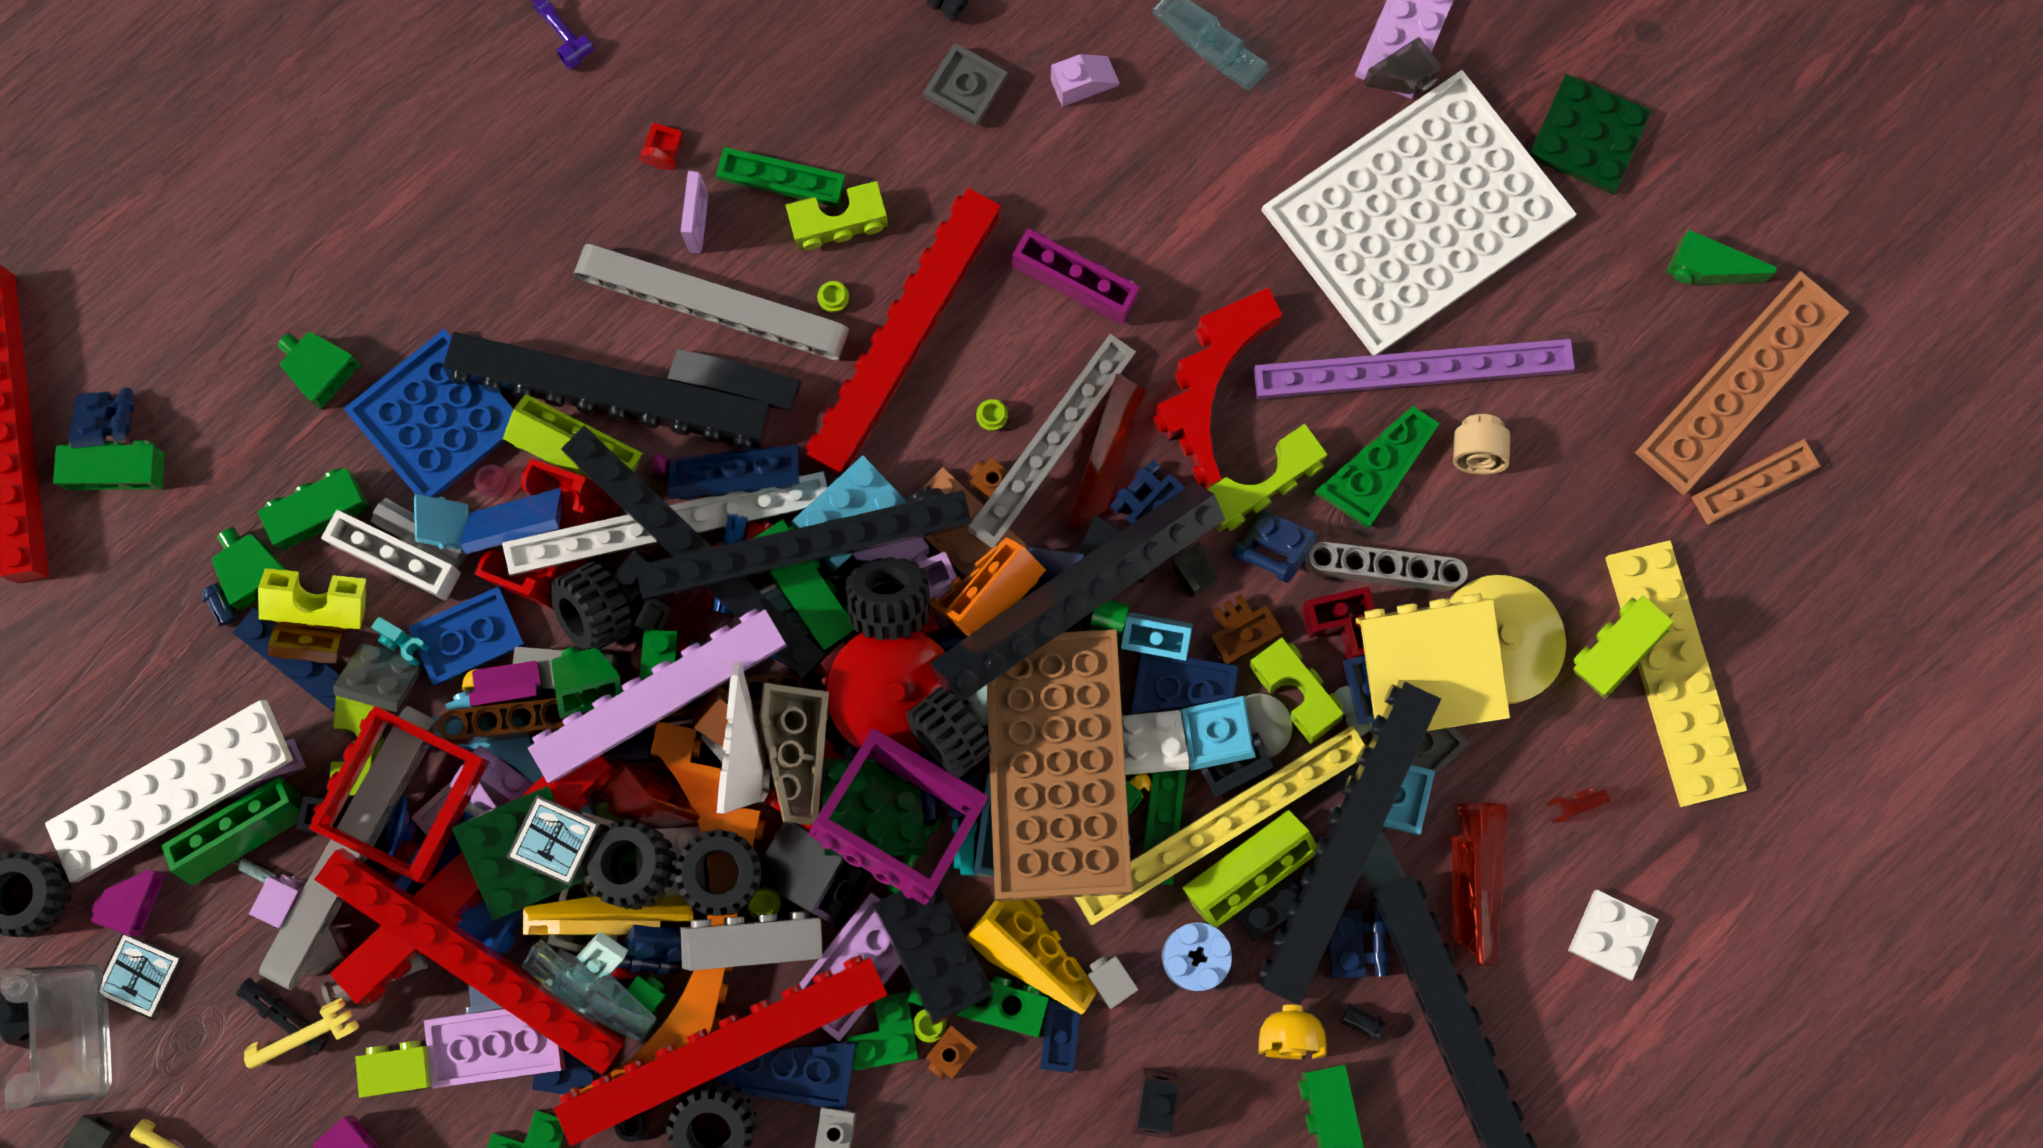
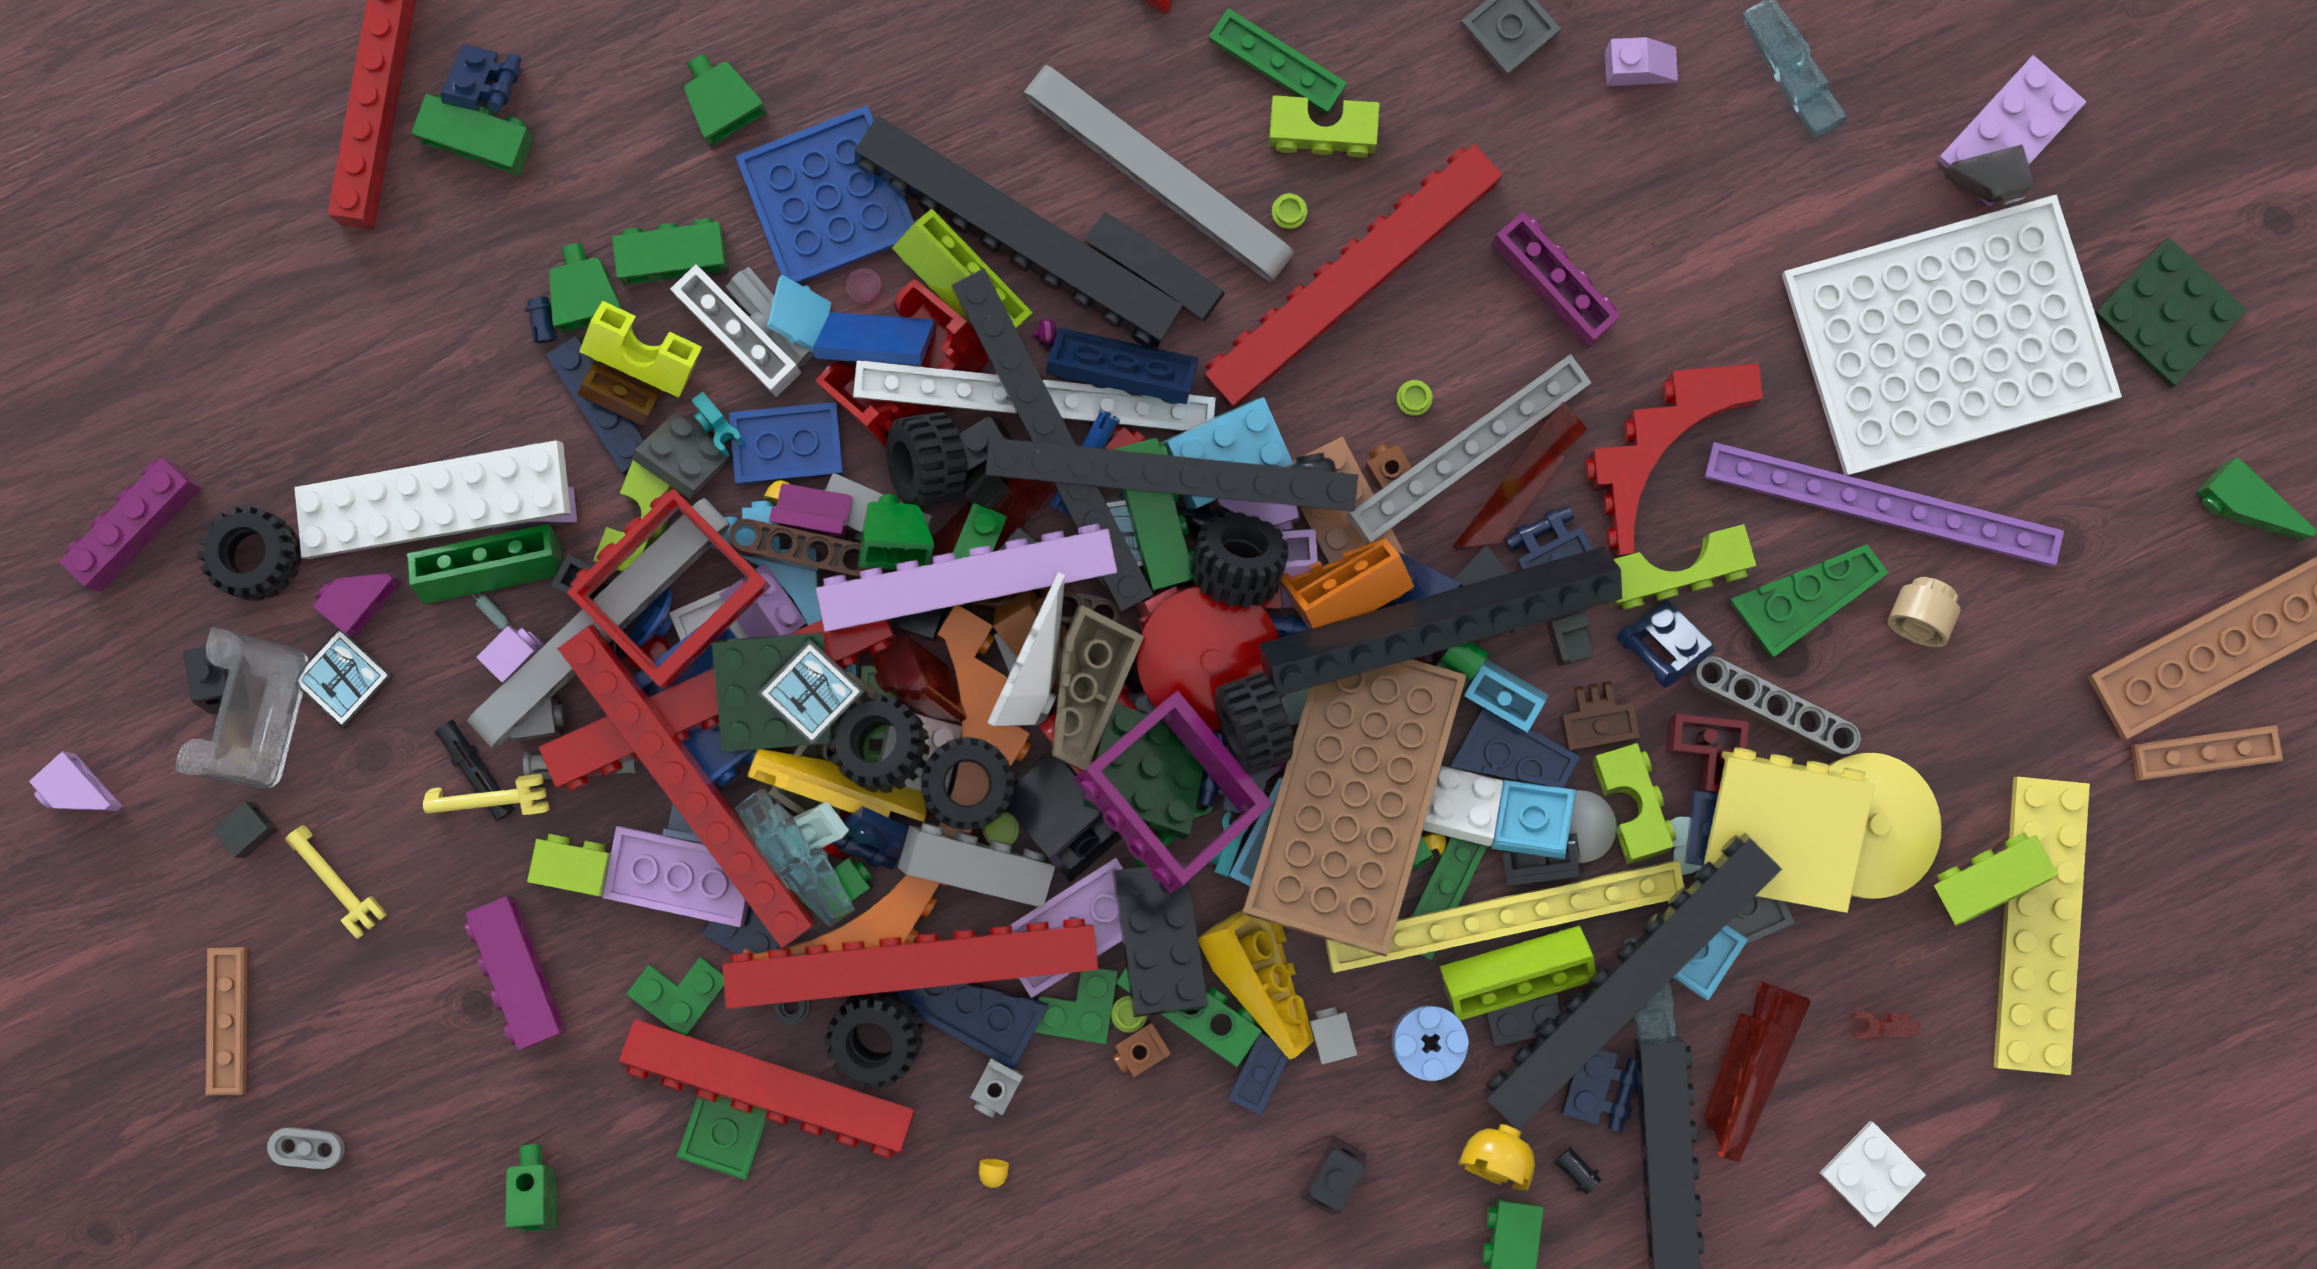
camera: 20 degrees right, 5 degrees up
(694, 212) = (1173, 70): lavender tile -> none

